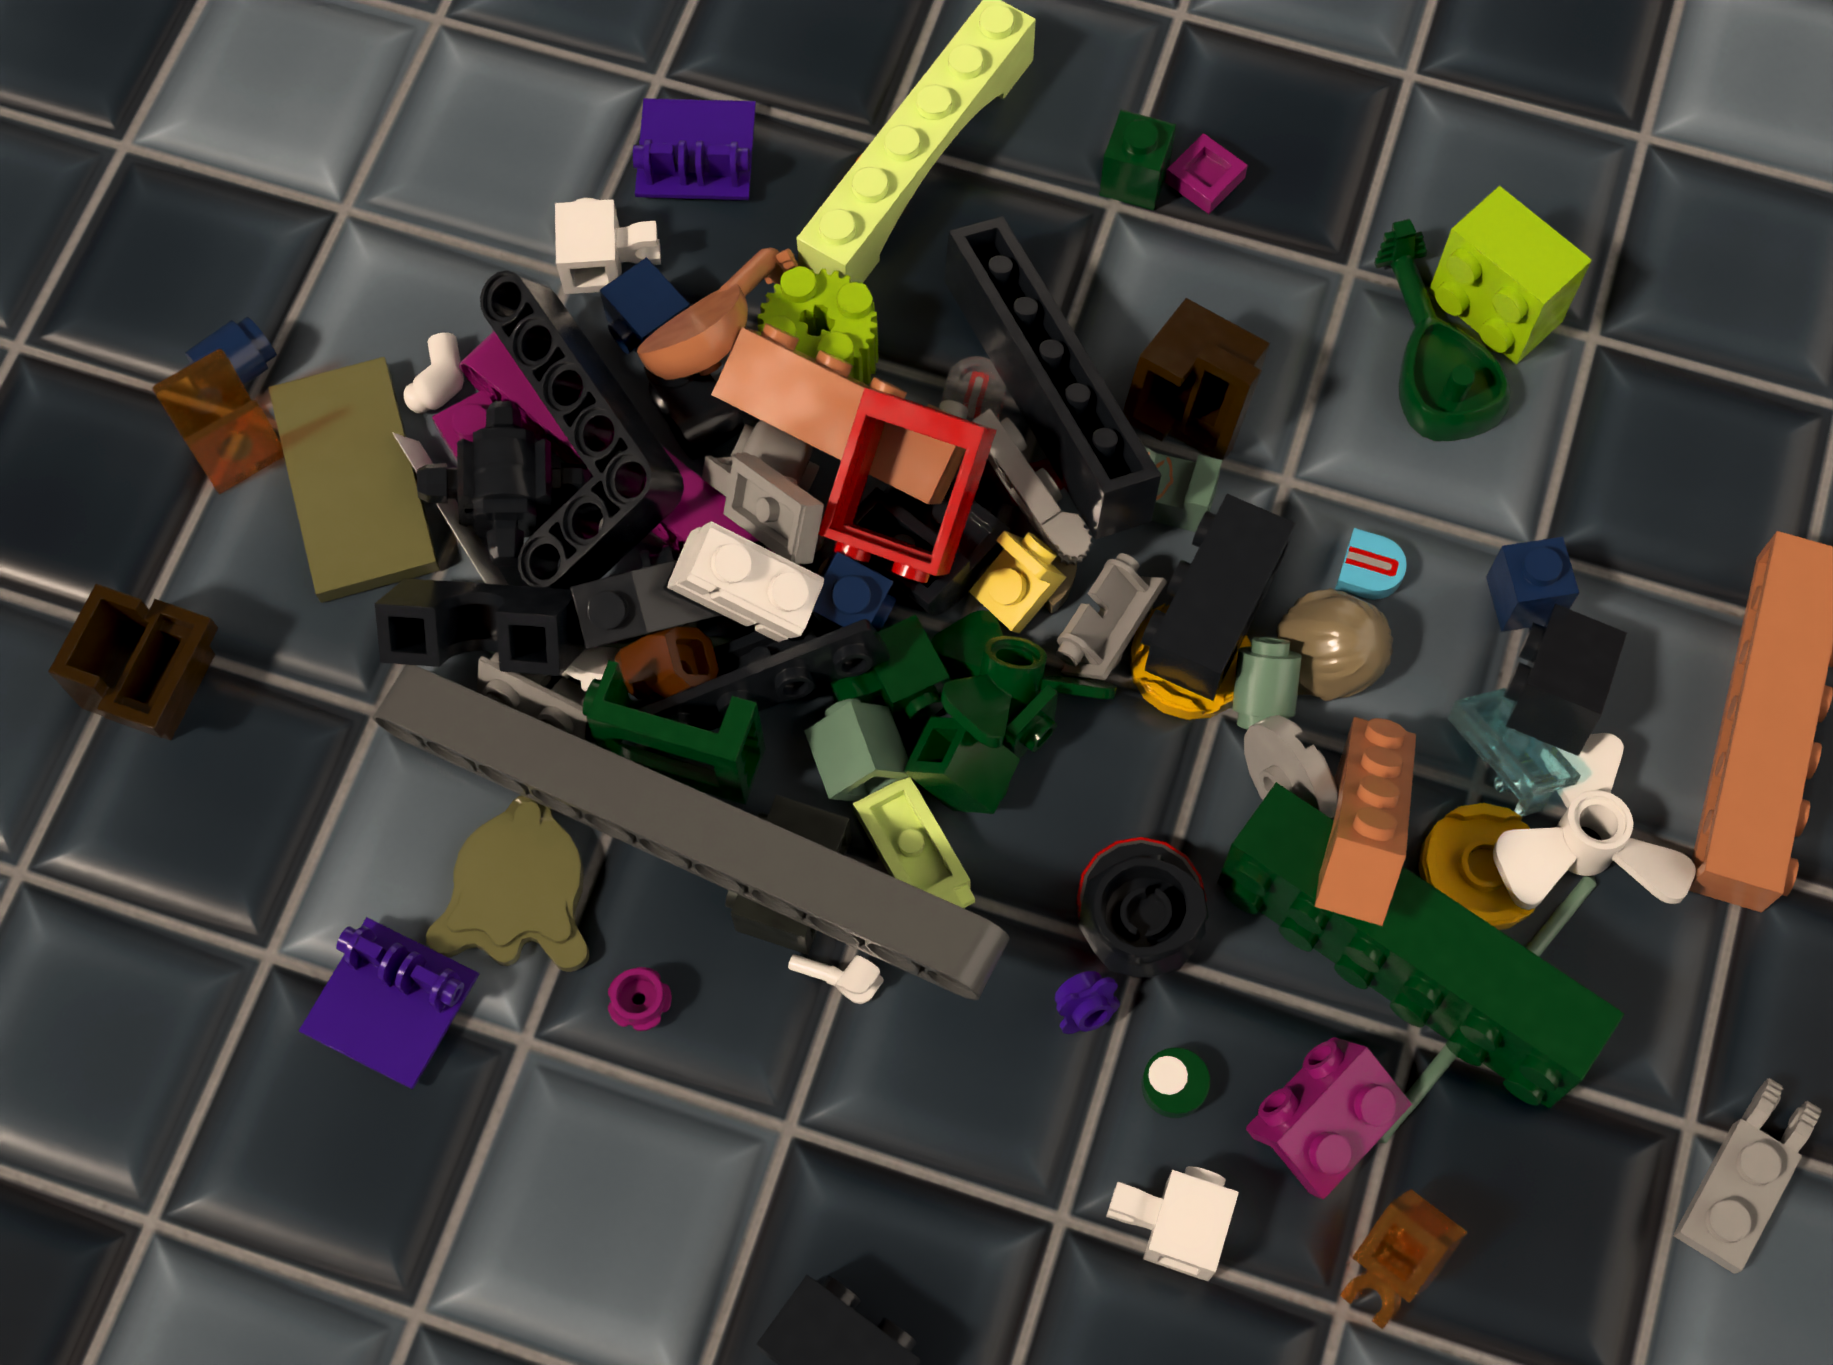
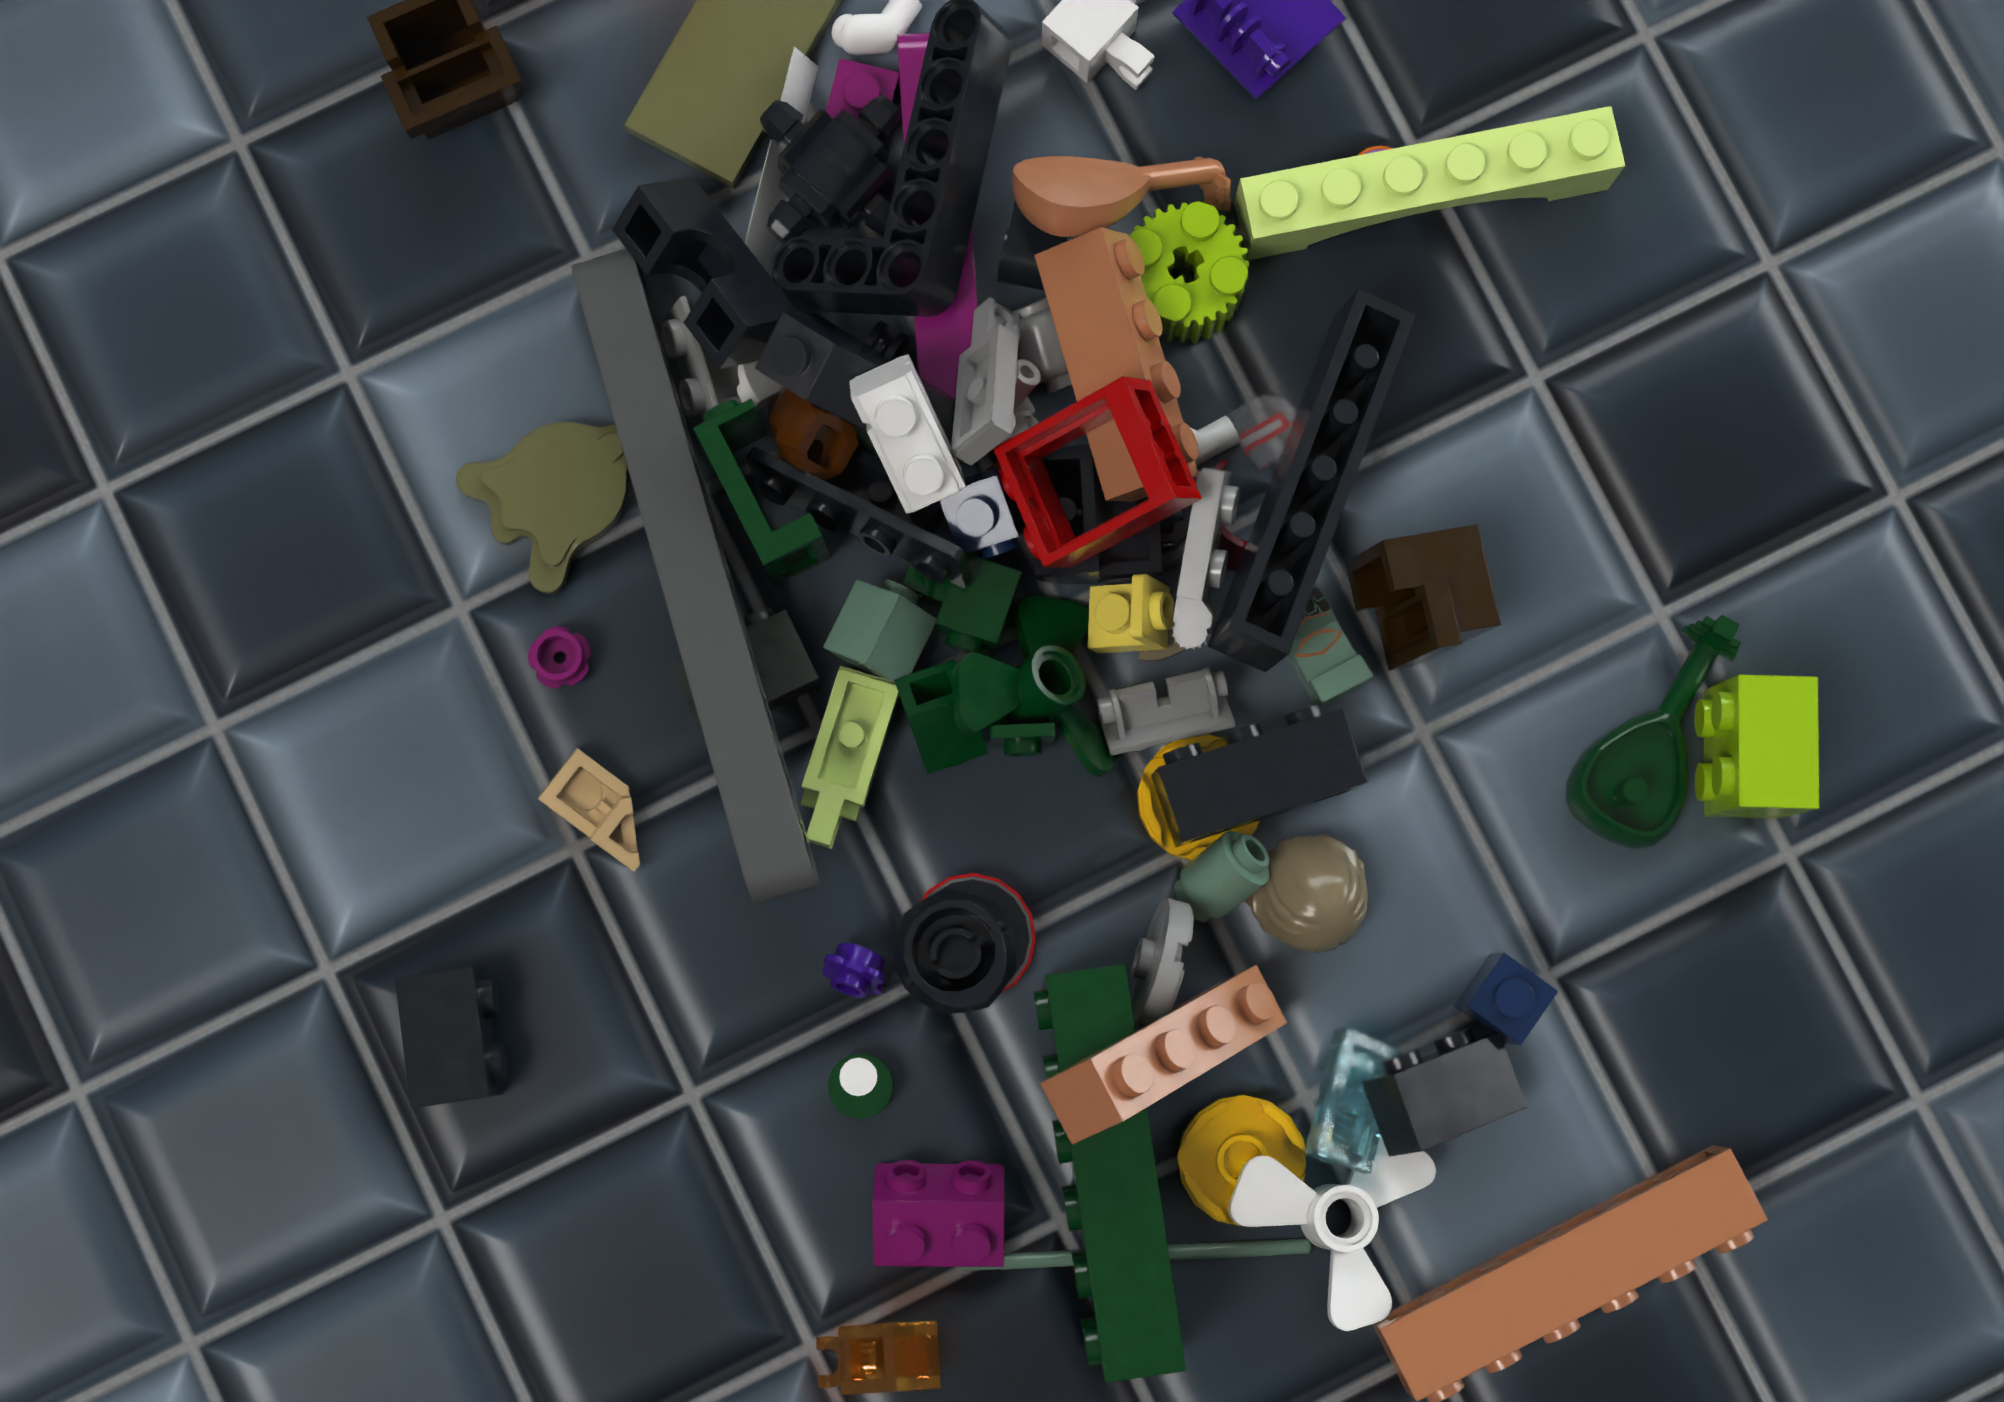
camera: 45 degrees right, 15 degrees up
(388, 1001) = (393, 489): dark purple hinge -> none
(639, 304) = (1076, 119): dark blue brick -> none
(774, 1078) = (595, 805): none -> tan slope
(856, 983) = (708, 785): white hand -> none
(1137, 159) = (1585, 362): dark green brick -> none
(1185, 1223) = (762, 1186): white brick -> none
(1206, 173) = (1631, 425): magenta plate -> none
(1371, 566) = (1408, 862): medium azure tile -> none

